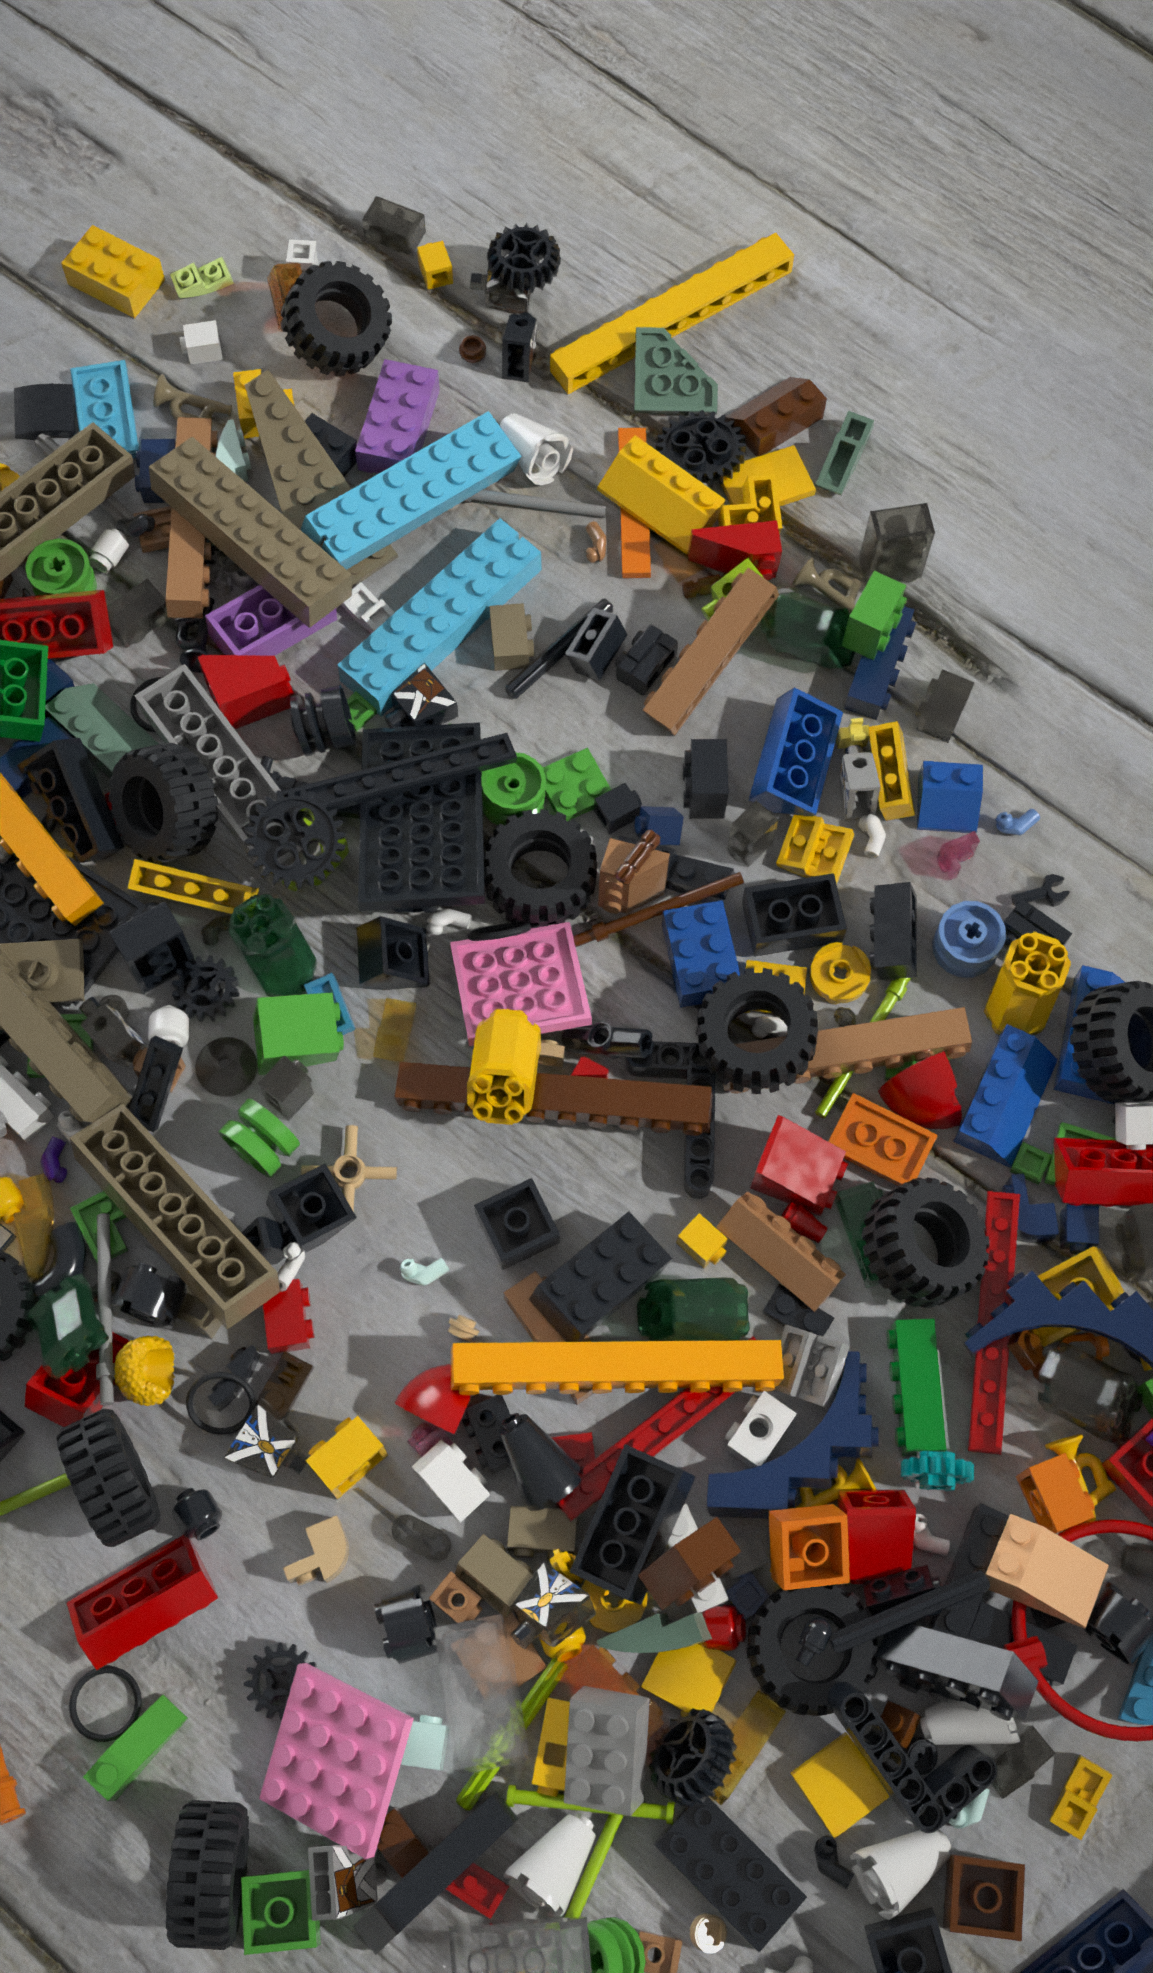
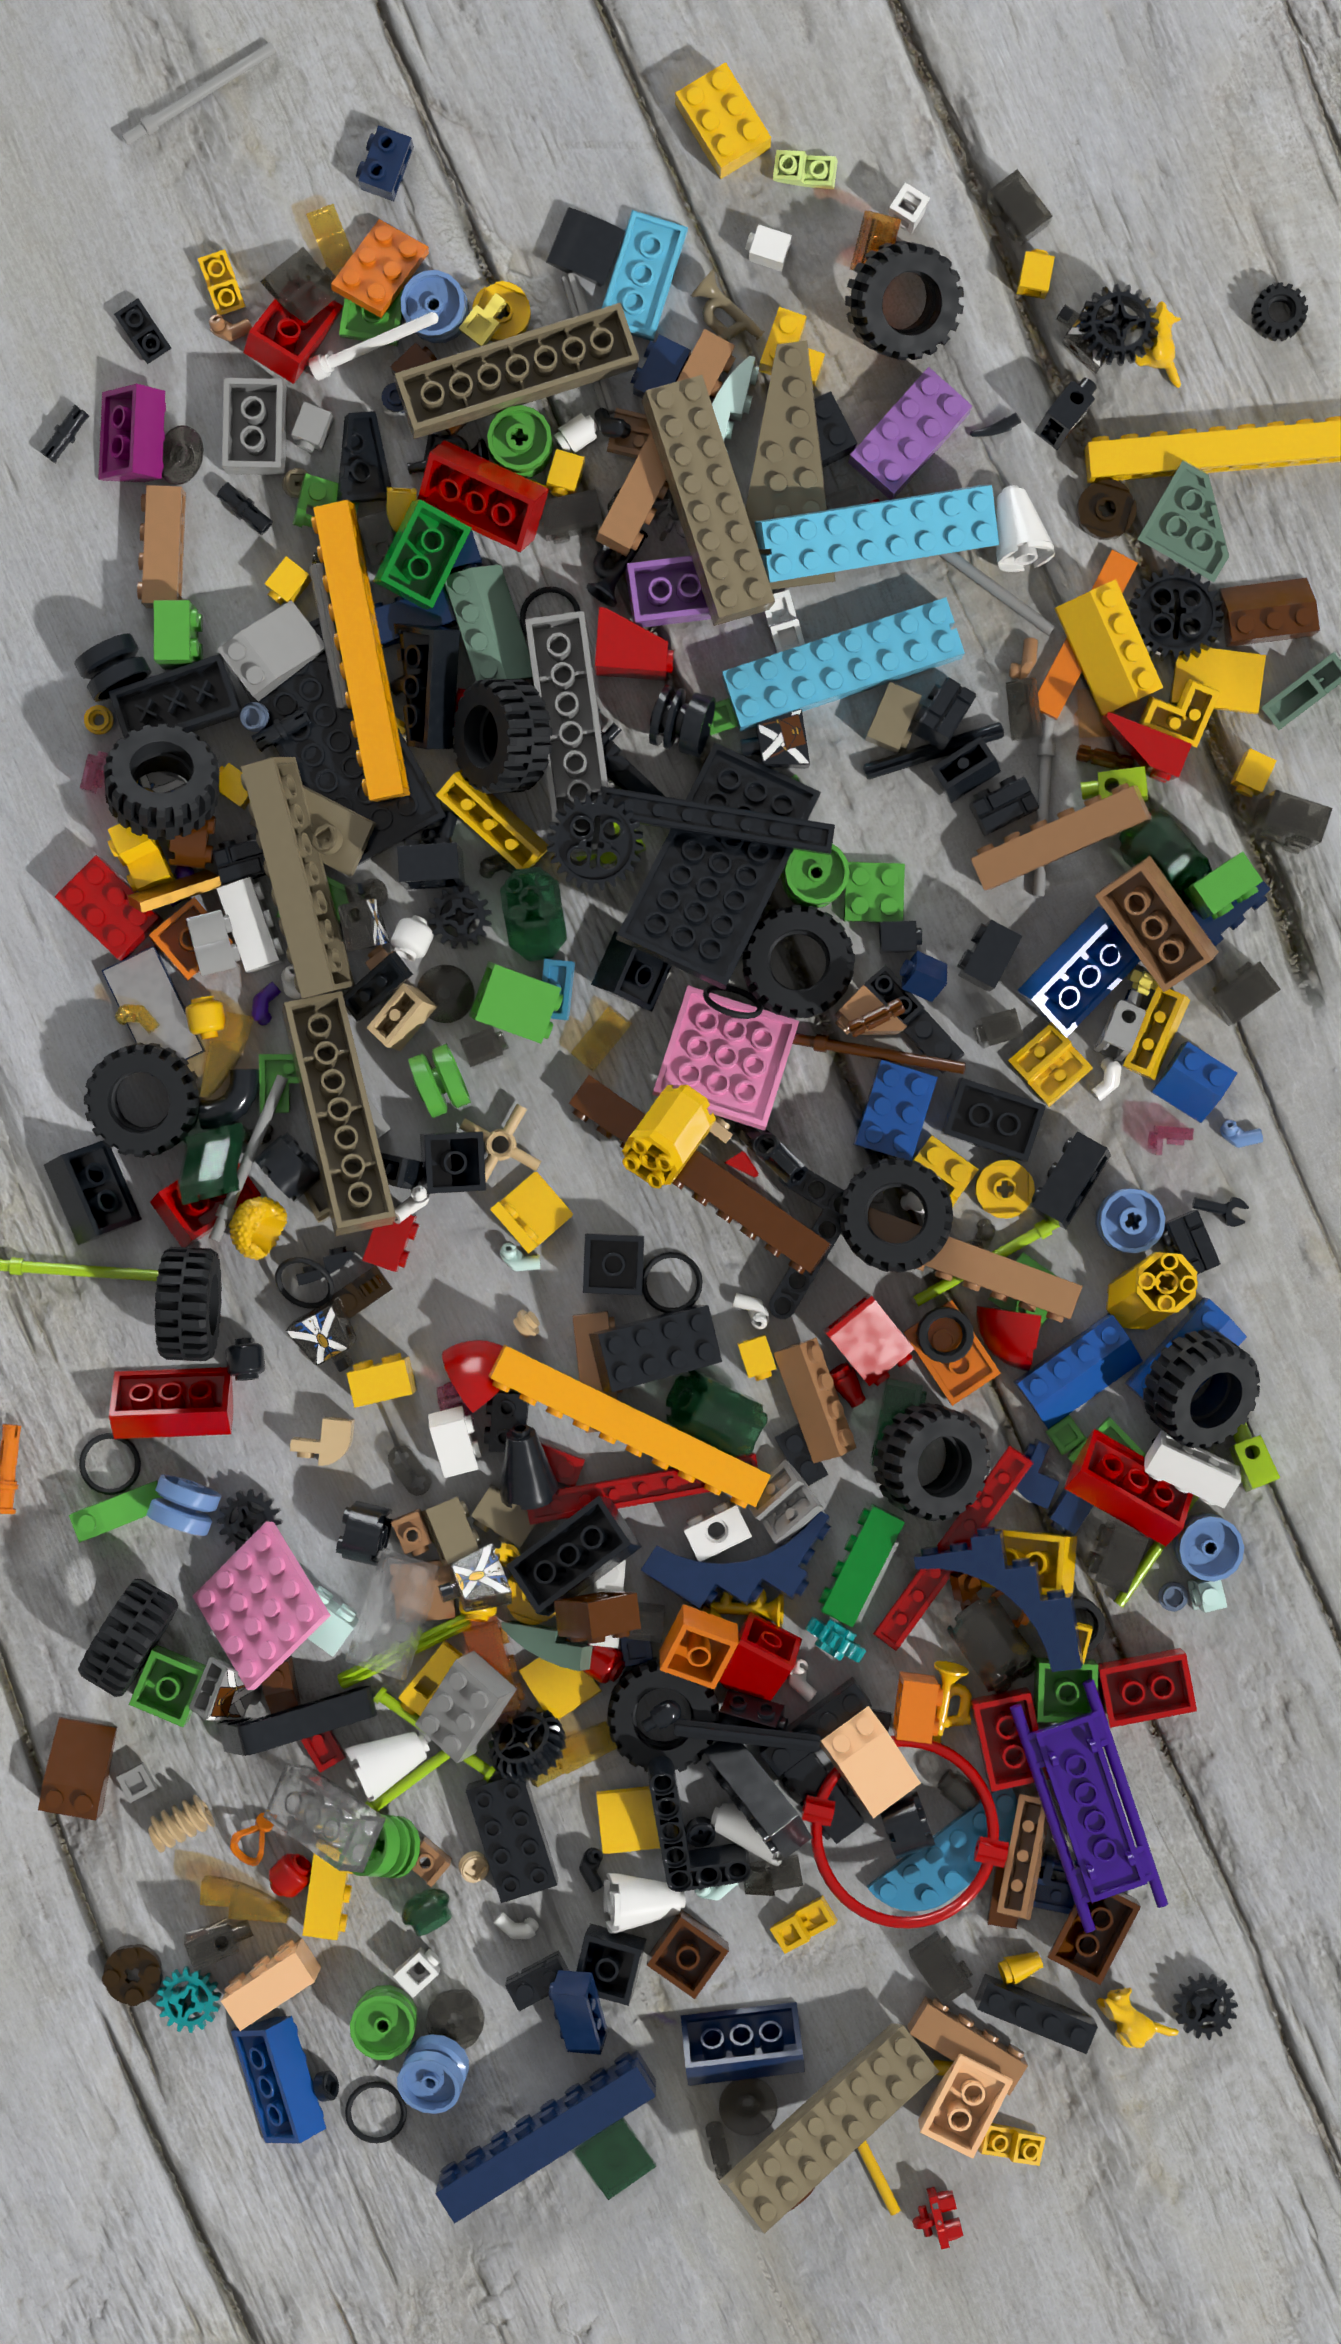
camera: 30 degrees right, 20 degrees up
(113, 579) = (565, 473): none -> yellow brick
(193, 1100) = (401, 1017): none -> tan brick
(202, 1691) = (183, 1505): none -> medium blue wheel
(412, 1220) = (532, 1212): none -> yellow bracket
(470, 386) = (1003, 425): none -> black helmet
(472, 349) = (1022, 389): reddish brown plate -> none
(551, 609) = (944, 713): none -> black brick
(570, 270) = (1163, 349): none -> yellow animal
(585, 1189) = (693, 1265): none -> black tyre
(595, 415) = (1121, 501): none -> dark brown plate
(617, 578) = (1024, 709): none -> clear smoke plate
(647, 193) = (1279, 294): none -> black tyre
(657, 603) = (1046, 751): none -> light grey bar
(673, 1198) = (755, 1309): none -> white arm
(809, 576) = (1198, 801): dark tan piece -> none
(836, 672) = (1156, 924): none -> medium nougat brick
(840, 534) = (1253, 773): none -> yellow brick
(875, 1102) = (967, 1332): none -> black tyre
(900, 1722) = (696, 1802): reddish brown plate -> none

